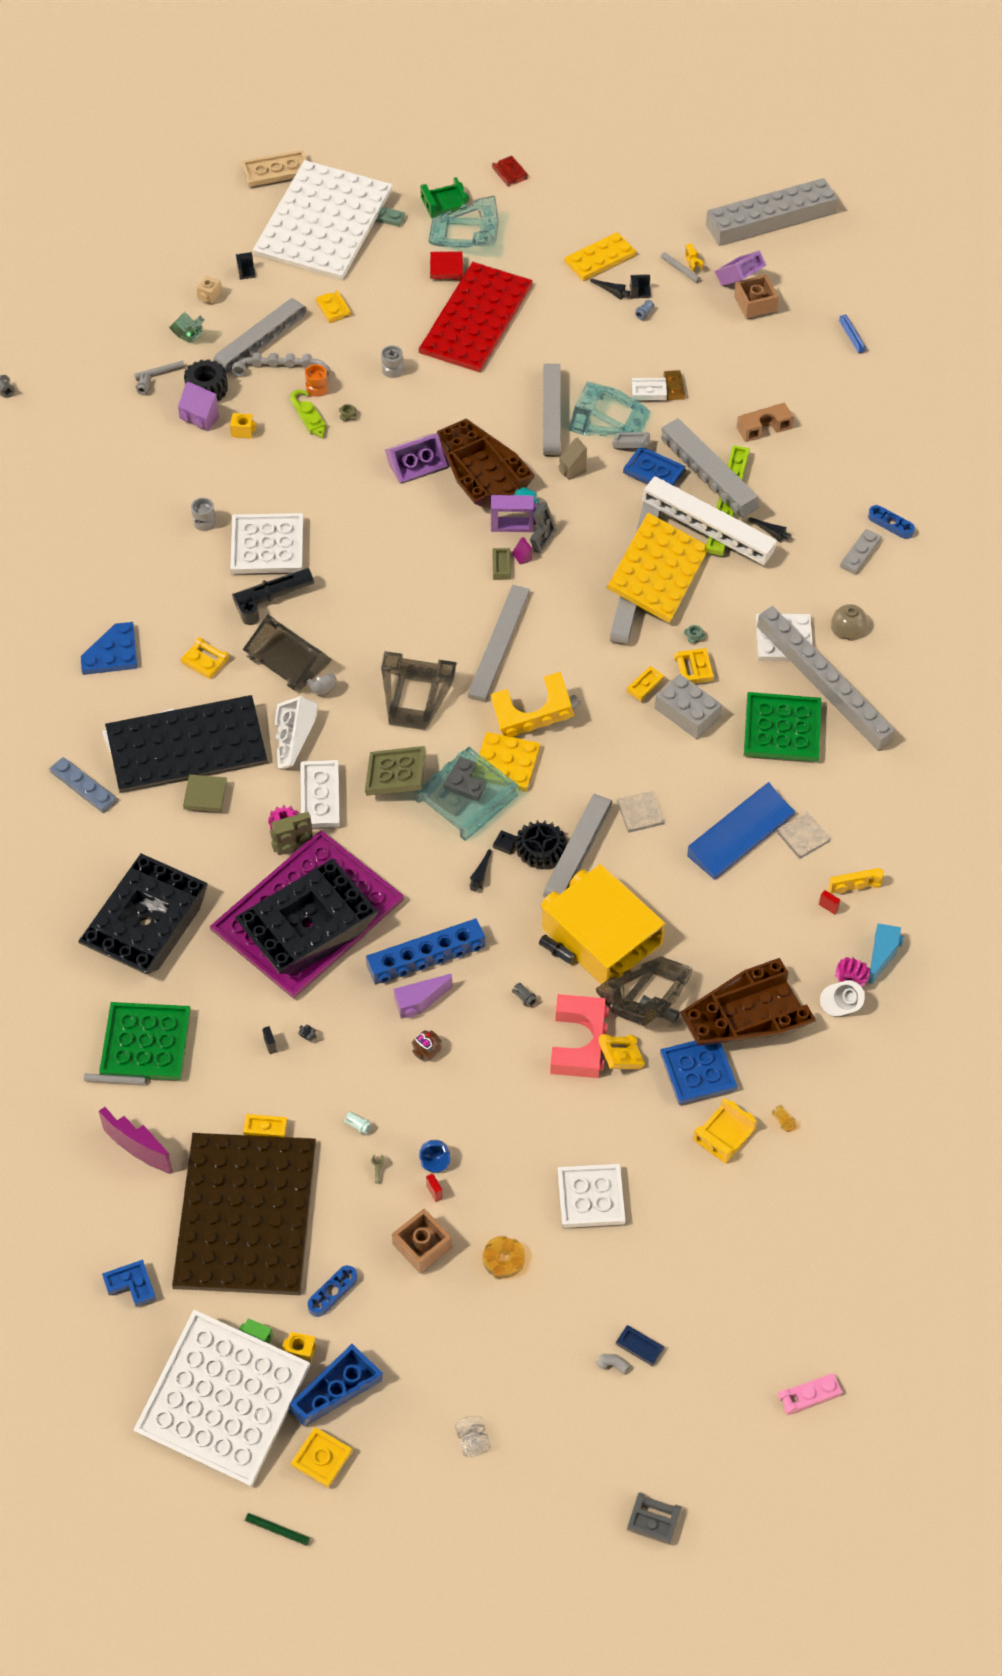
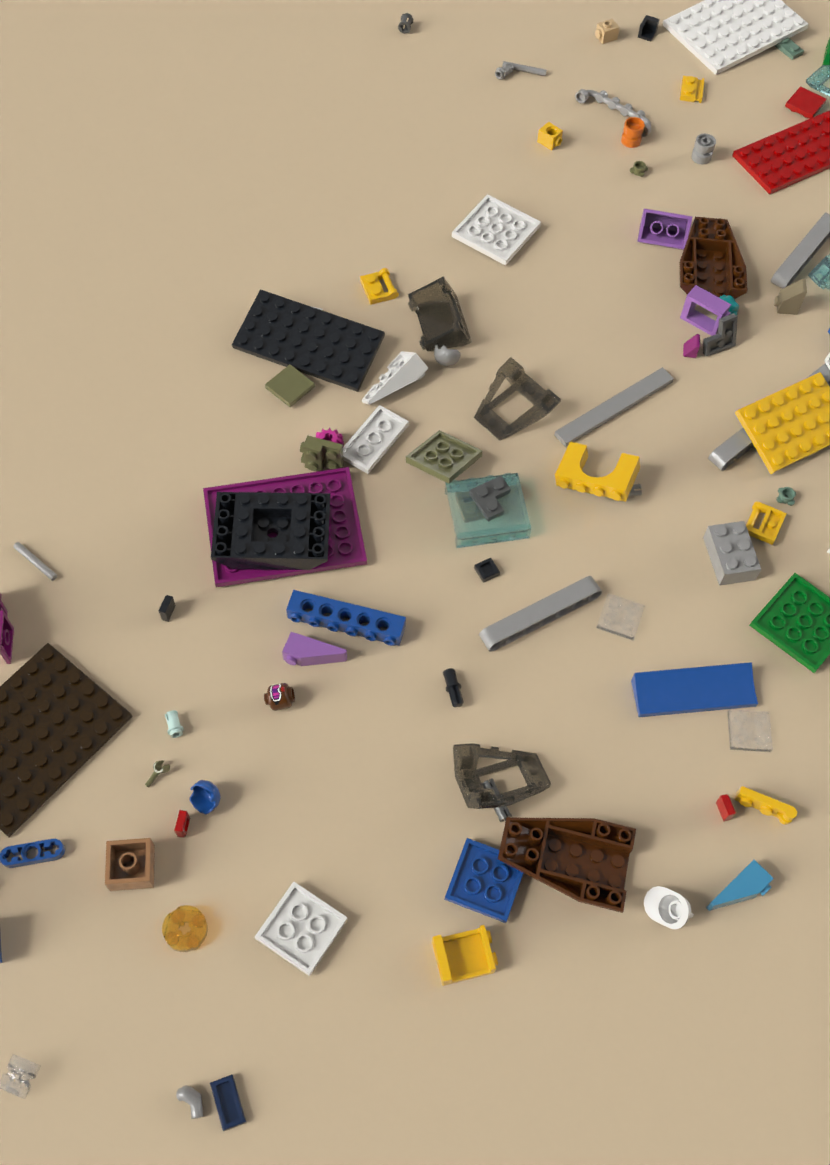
camera: 35 degrees right, 5 degrees up
(82, 785) = (212, 326): sand blue plate -> none
(112, 651) = (318, 244): blue plate -> none
(145, 1040) = (80, 546): green plate -> none
(151, 893) = (180, 433): black slope -> none
(187, 328) = (568, 48): clear green brick -> none
(198, 406) = (527, 105): medium lavender slope -> none
(203, 514) = (466, 181): light grey wheel -> none
(208, 376) = (549, 91): black tyre -> none
(261, 333) = (620, 79): light grey beam -> none
(265, 1125) = (103, 676): yellow plate -> none
(267, 591) = (466, 263): black piece -> none
(307, 1032) = (200, 622): black plate -> none
(308, 414) = (608, 154): lime plate -> none
(477, 877) = (440, 584): black piece -> none
(501, 564) = (667, 346): olive tile -> none
(511, 756) = (547, 504): yellow plate -> none
(525, 995) = (395, 713): dark grey pin -> none
(530, 849) = (506, 581): black gear -> none
(583, 1060) = (400, 802): coral arch -> none
(602, 924) = (505, 692): yellow brick -> none
(621, 1057) = (428, 822): yellow plate -> none
(645, 683) = (710, 511): yellow plate -> none
(787, 1123) = (526, 983): clear yellow pin -> none
(852, 970) = (695, 889): dark pink gear -> none

